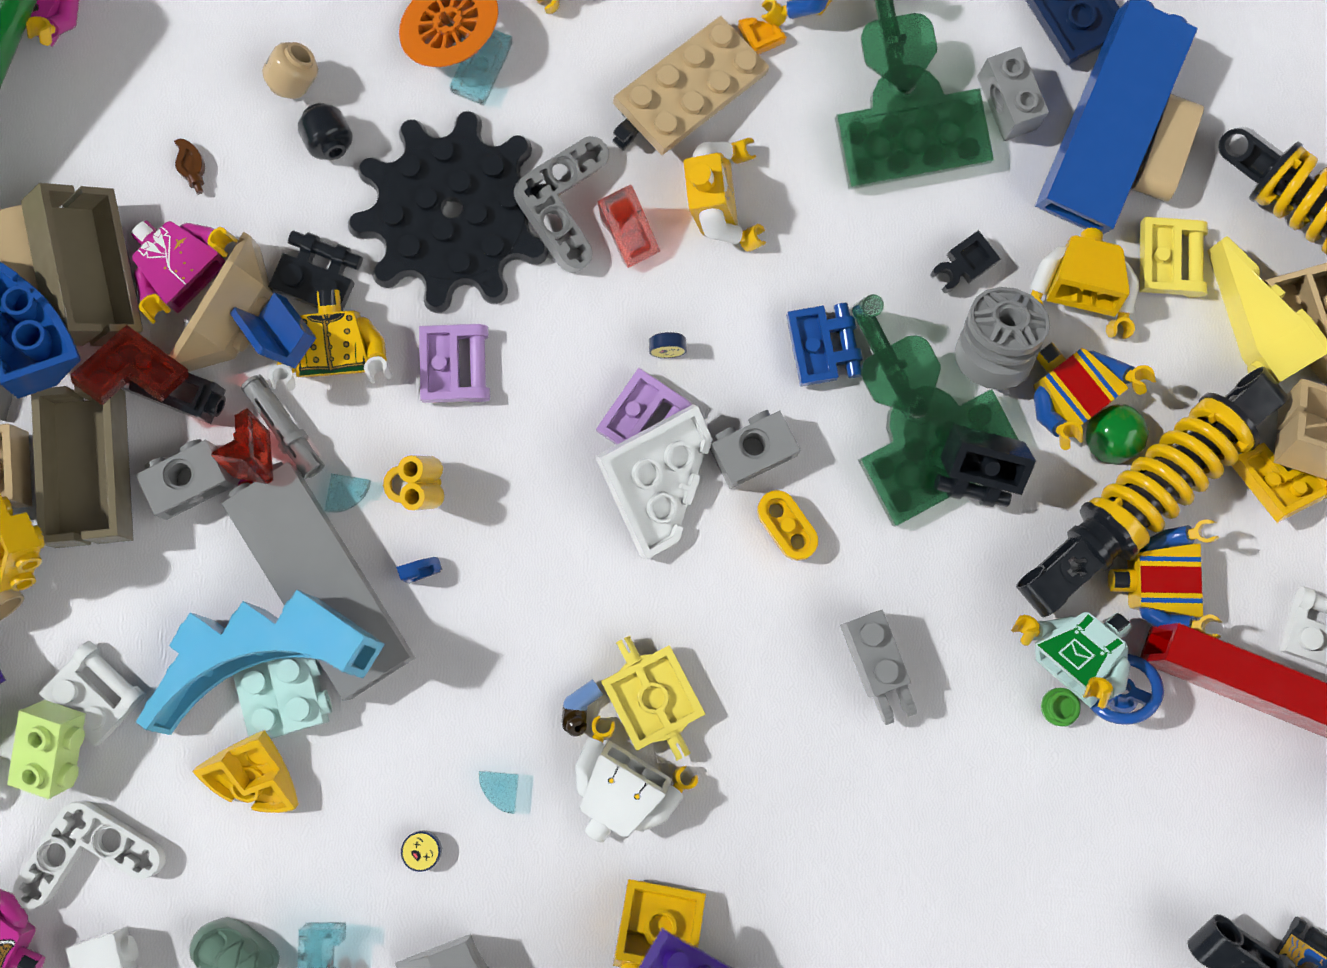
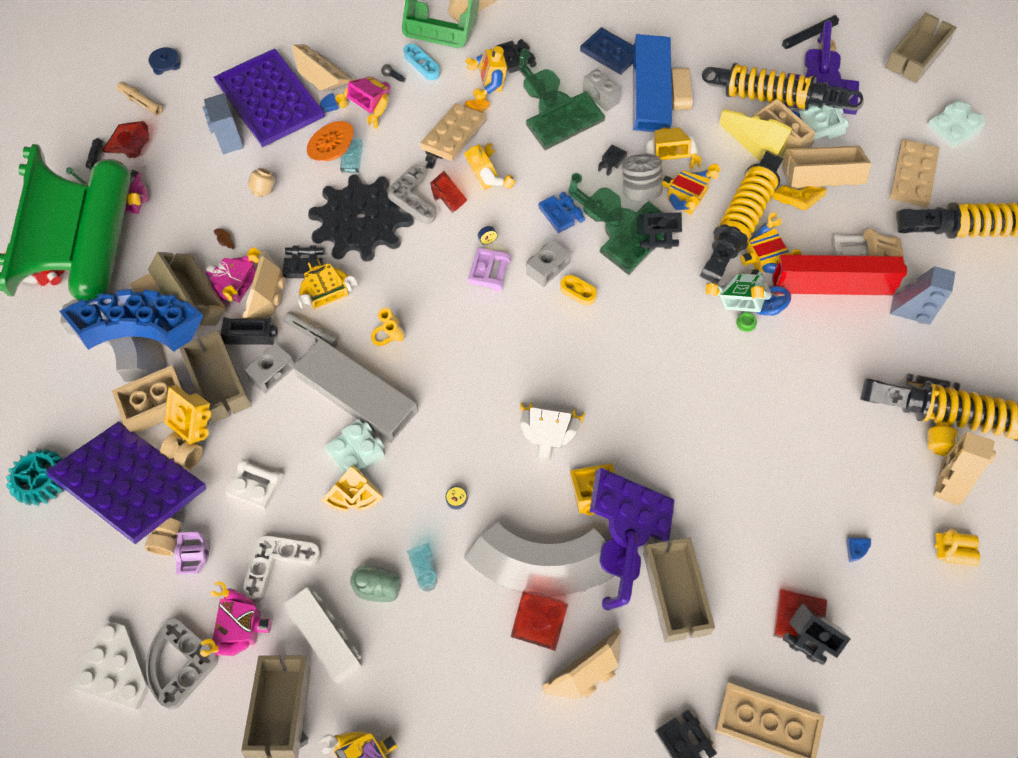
camera: 10 degrees left, 20 degrees down
(46, 749) = (239, 511): yellowish green brick -> none
(128, 358) = (227, 315): clear red plate -> none
(250, 452) = (297, 343): clear red slope -> none
(253, 636) = (312, 437): medium azure arch -> none
(276, 331) = (296, 281): blue panel -> none
(324, 131) = (286, 202): black head -> none
(345, 492) = (354, 349): clear light blue tile -> none
(419, 569) = (403, 369): blue tile -> none
(441, 363) = (380, 278): lavender plate -> none
(500, 789) = (485, 455): clear light blue tile -> none
(575, 708) = (509, 403): arm -> none
(653, 698) = (545, 385): light yellow plate -> none
(657, 477) = (506, 288): white plate -> none
(878, 662) = (649, 329): light grey hinge -> none
(1117, 434) = (714, 203): green hair -> none
(1163, 256) = (700, 130): light yellow plate -> none

